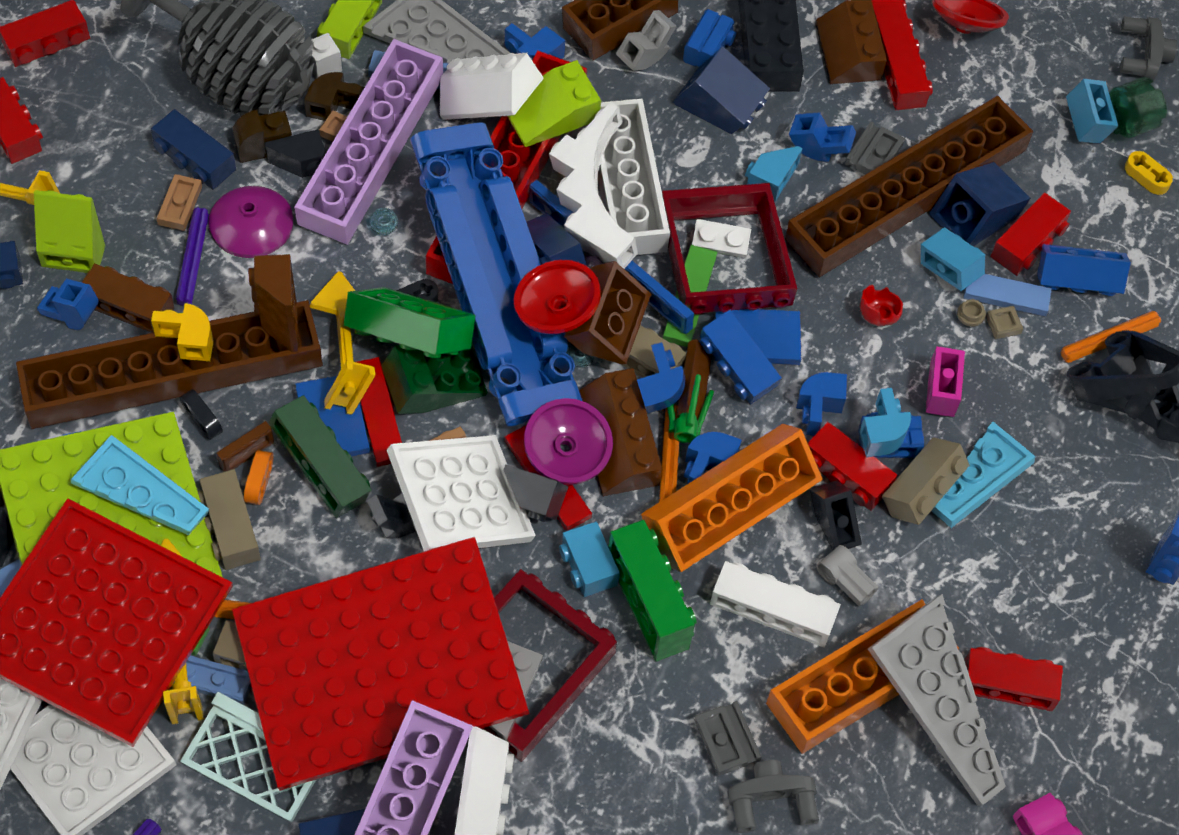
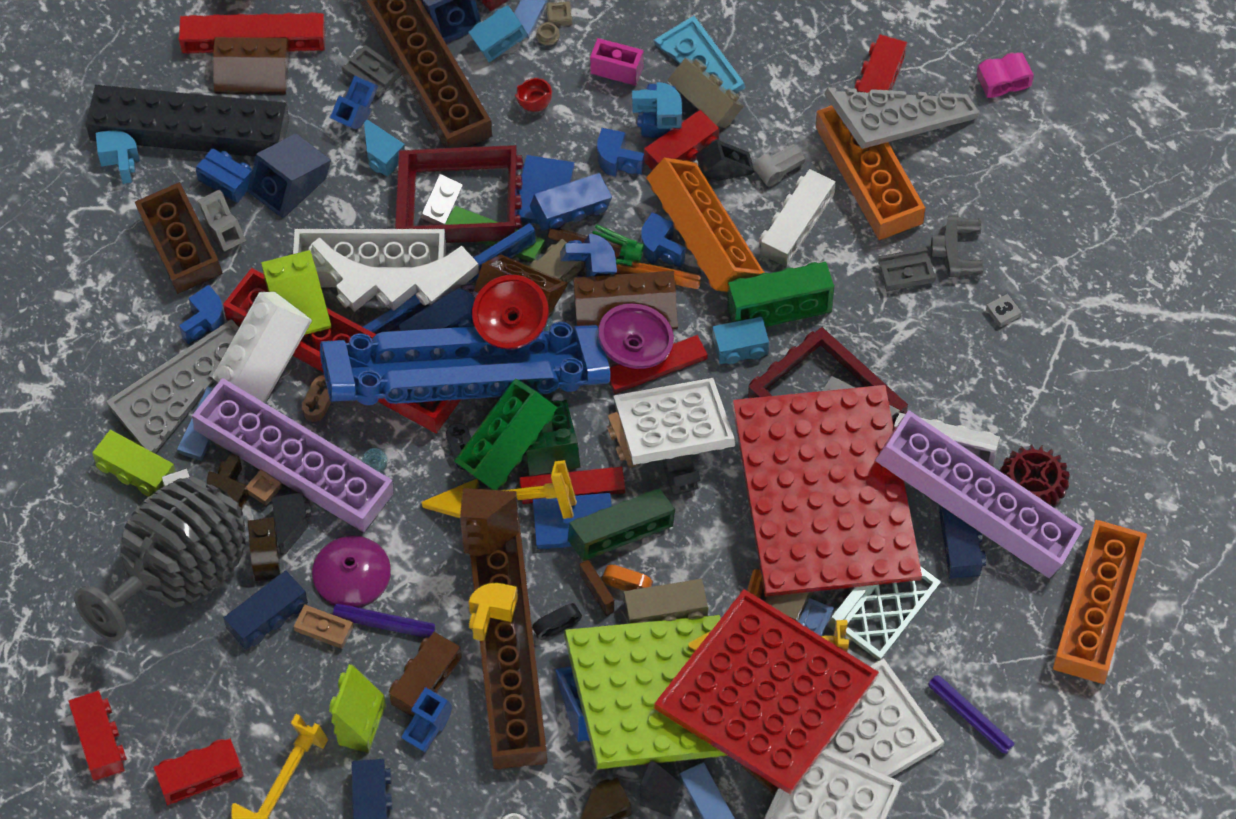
camera: 75 degrees left, 0 degrees up
(135, 484) = (642, 655): medium azure wing -> none
(536, 493) = (678, 368): black slope -> none

